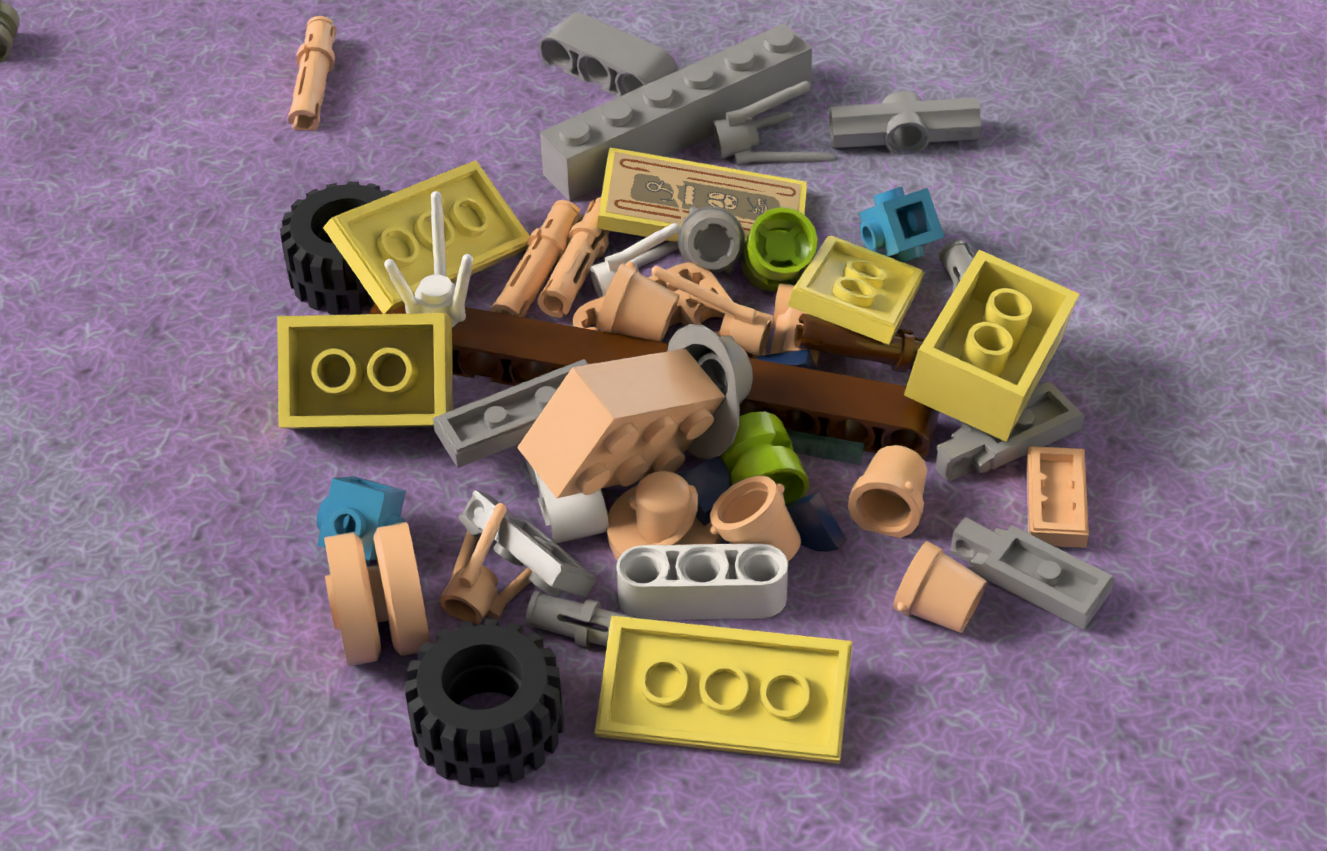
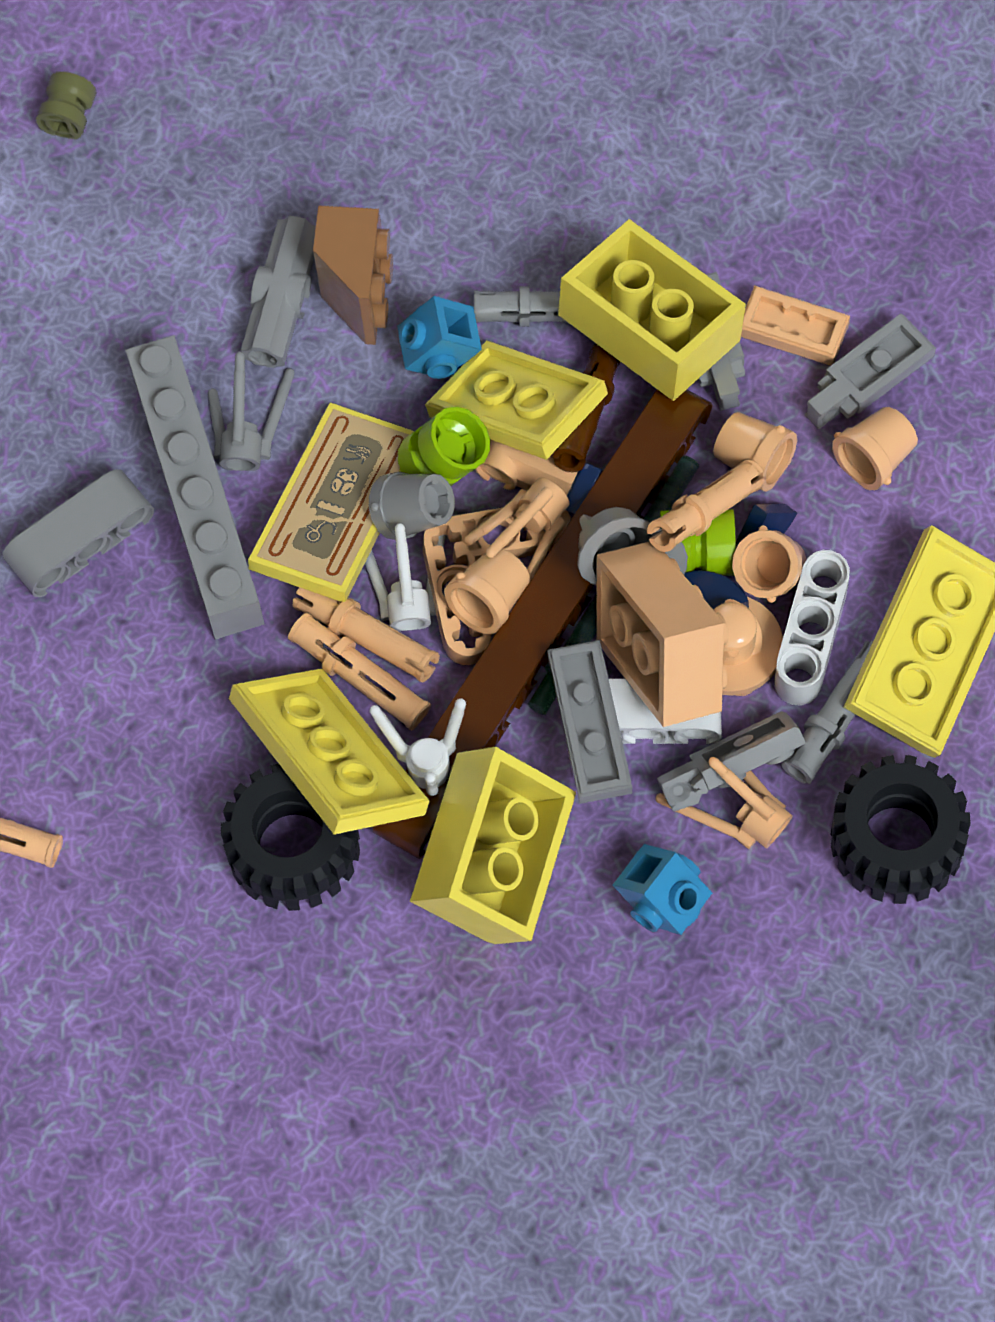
camera: 70 degrees left, 20 degrees up
(376, 593) = (771, 887): light nougat wheel -> none
(785, 432) = (695, 512): none -> light nougat pin
(941, 142) = (354, 267): none -> medium nougat slope

